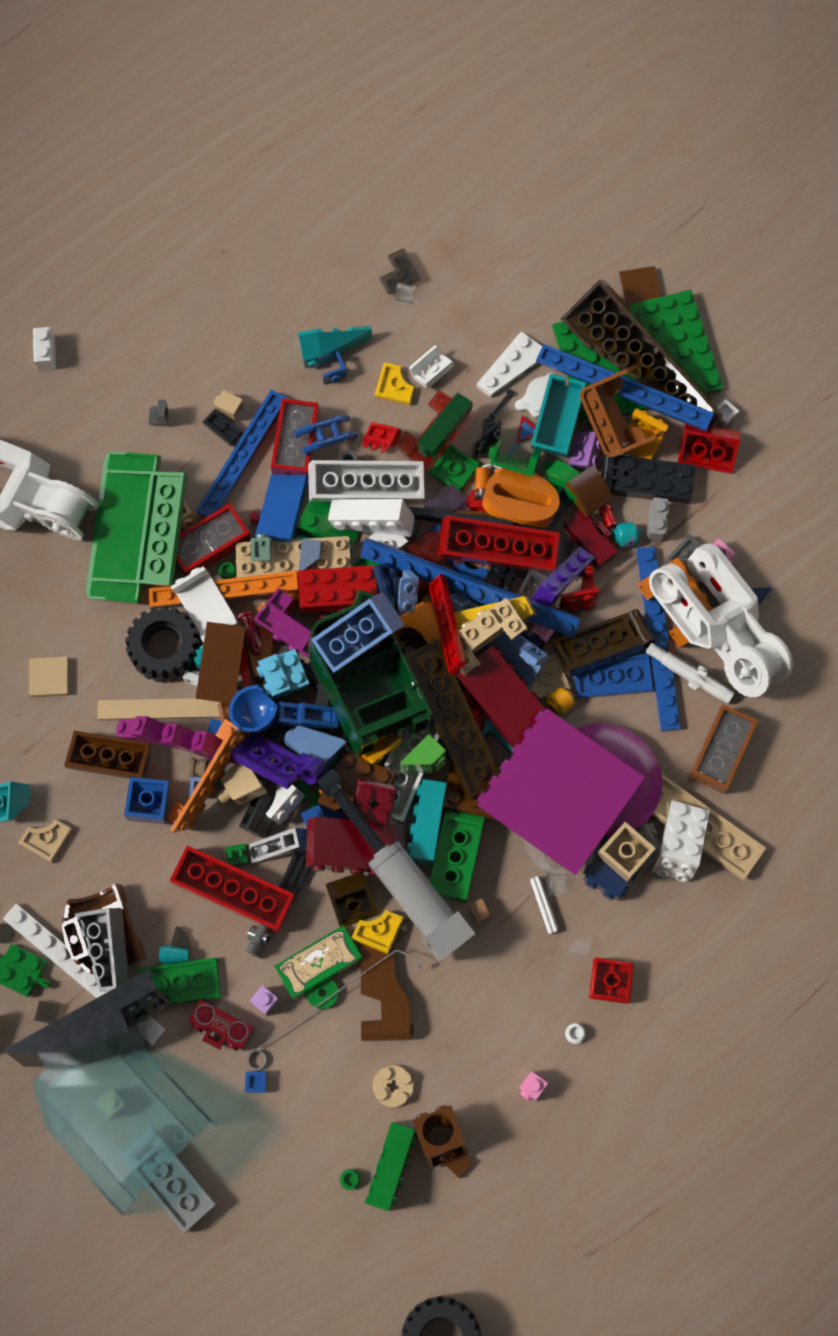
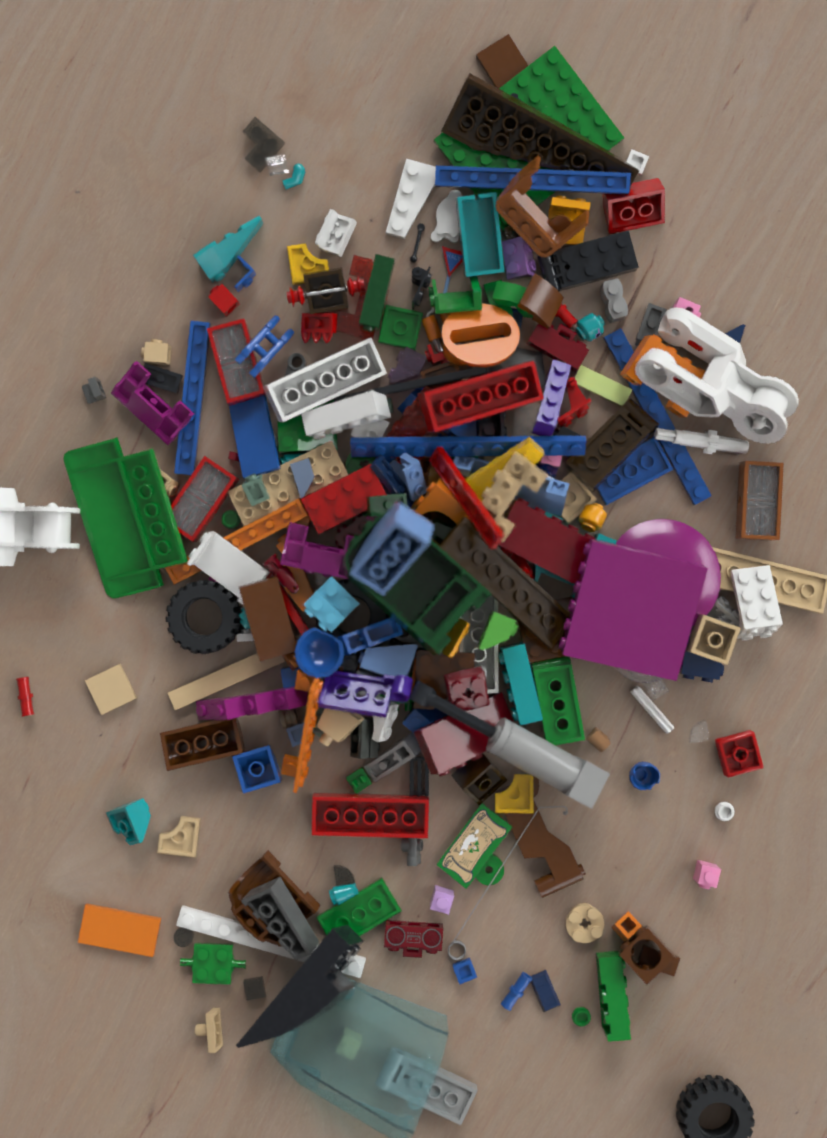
camera: 25 degrees left, 15 degrees up
(200, 445) = (149, 407): none -> magenta bracket
(297, 1124) = (516, 991): none -> blue pin
(308, 384) = (223, 299): none -> red brick
(325, 1138) = (544, 991): none -> dark blue tile
(401, 408) = (325, 290): none -> dark brown brick
(420, 308) = (297, 176): none -> teal arm
(430, 1100) = (626, 926): none -> orange brick
(510, 963) = (644, 775): none -> blue hair
(616, 589) = (602, 386): none -> yellowish green tile

